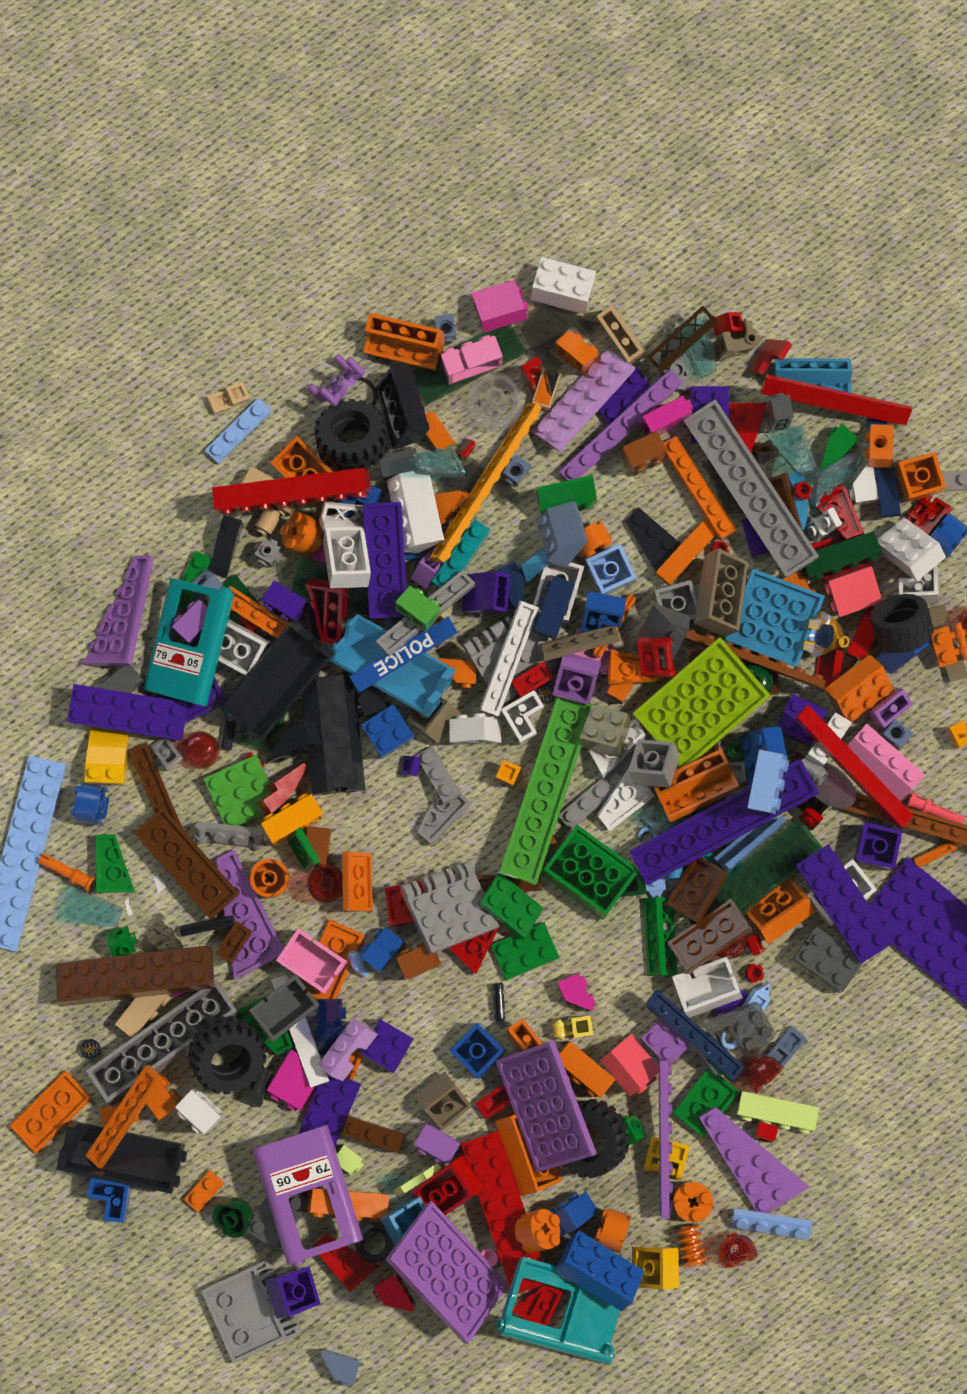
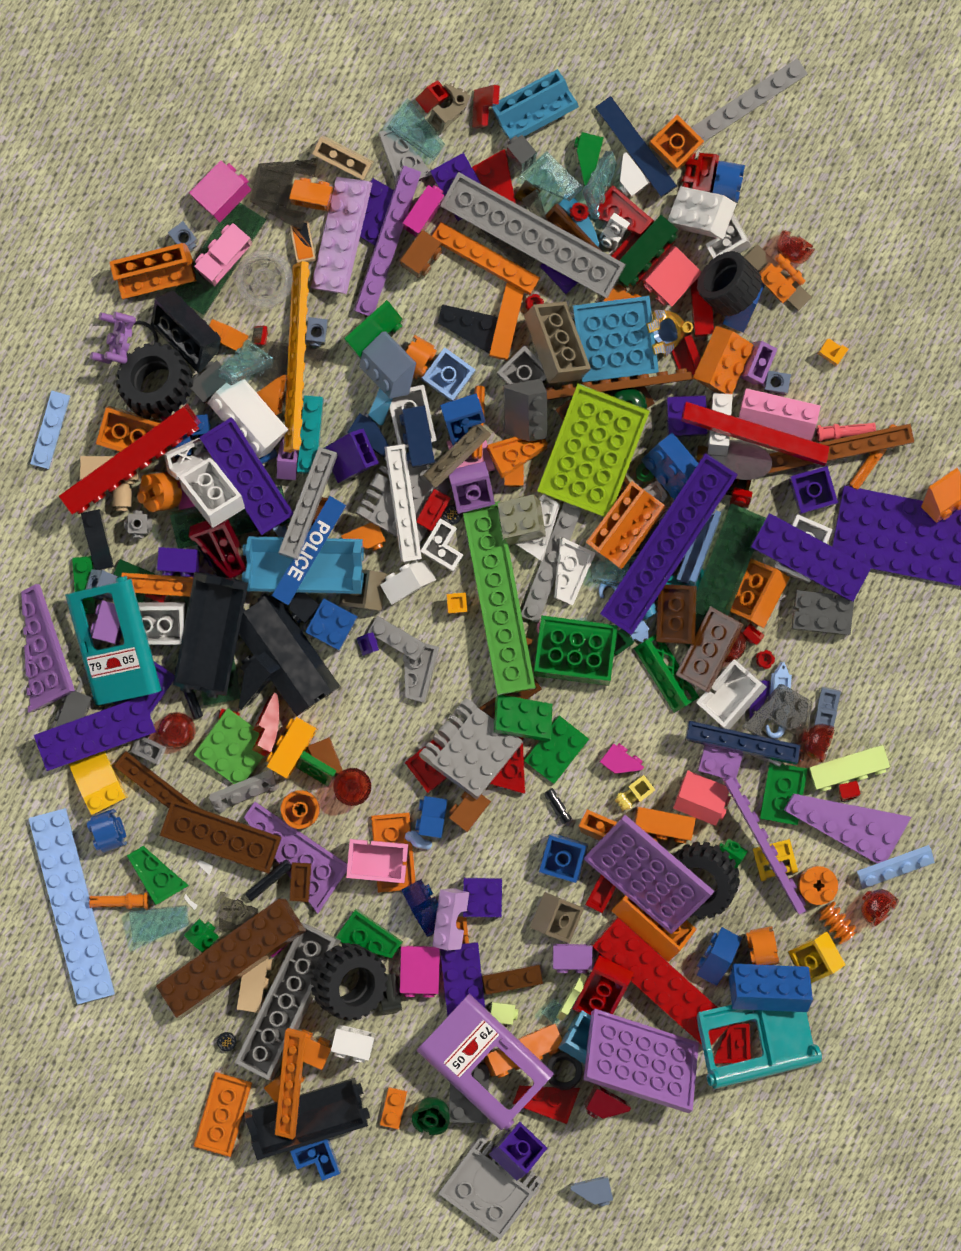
camera: 30 degrees left, 5 degrees up
(228, 398) = (25, 405): tan slope -> none
(283, 1008) = (375, 915): dark grey piece -> none
(305, 1045) = (399, 925): white sticker -> none
(357, 881) = (378, 770): orange tile -> none
(418, 608) = (299, 503): bright green brick -> none
(490, 1255) = (670, 1027): bright pink tile -> none
(530, 369) = (279, 234): red panel -> none
(538, 1230) = (699, 983): orange brick -> none
(563, 285) = (266, 141): white brick -> none
(650, 658) = (525, 433): red plate -> none
(654, 763) = (580, 526): light grey brick -> none
(690, 341) = (406, 136): dark brown fence -> none
(768, 782) = (688, 490): light blue brick -> none
(816, 772) = (725, 456): light grey cone -> none
(837, 400) = (565, 113): red tile -> none
(883, 436) = (633, 142): orange brick -> none

